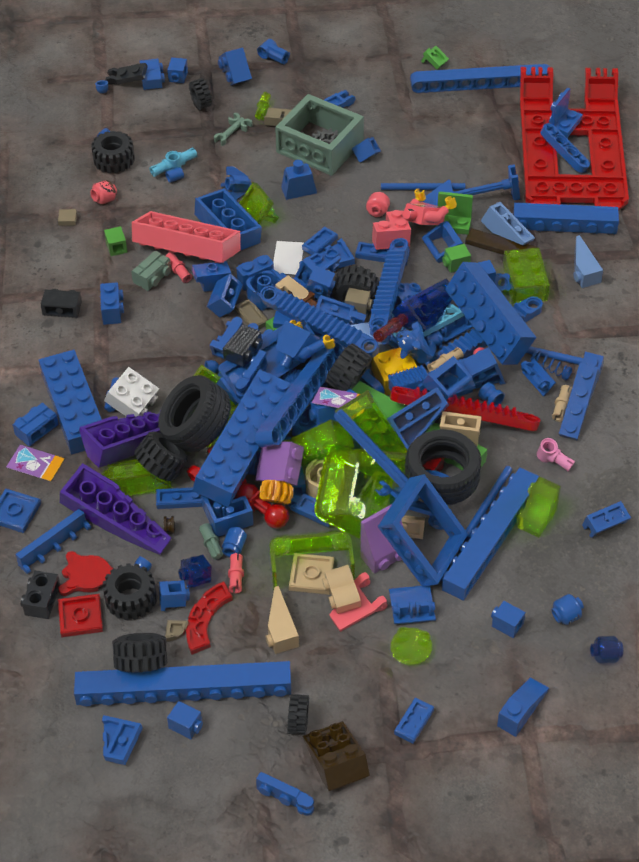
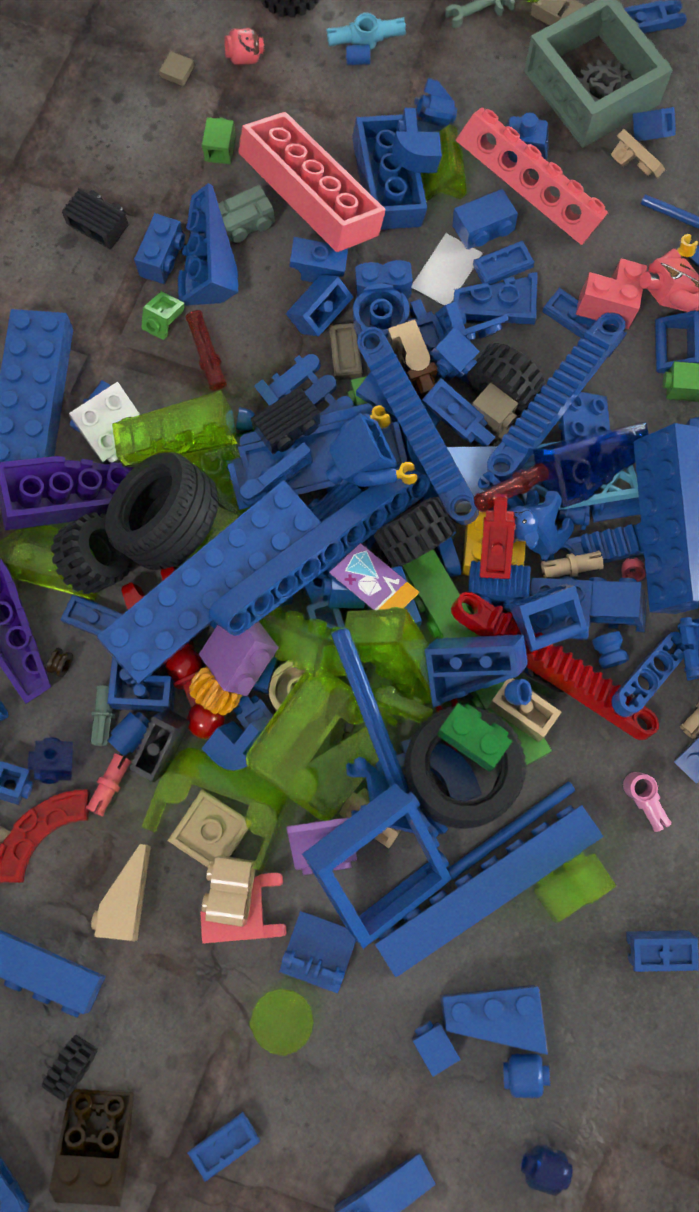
camera: 25 degrees right, 25 degrees up
(129, 336) = (160, 314): none -> bright green bracket
(143, 298) = (210, 264): none -> blue wedge
(173, 347) = (215, 376): none -> clear red pin
(178, 268) = (283, 224): coral pin -> none
(192, 360) = (178, 428): none -> clear neon green wedge
(239, 200) = (416, 149): none -> blue brick
(257, 534) = (159, 745): none -> black brick
(297, 223) = (484, 219): none -> blue brick
(305, 521) = (230, 743): none -> blue brick
(354, 208) = (516, 175): none -> coral brick
(360, 164) = (630, 148): none -> tan hinge
(379, 203) = (620, 233): coral head -> none
(398, 352) = (497, 540): none -> red hinge
(440, 437) = (474, 736): none -> green brick
(451, 413) = (518, 692): none -> blue hinge
(519, 394) = (651, 674): none -> blue beam
(534, 587) = (498, 1015): none -> blue wedge

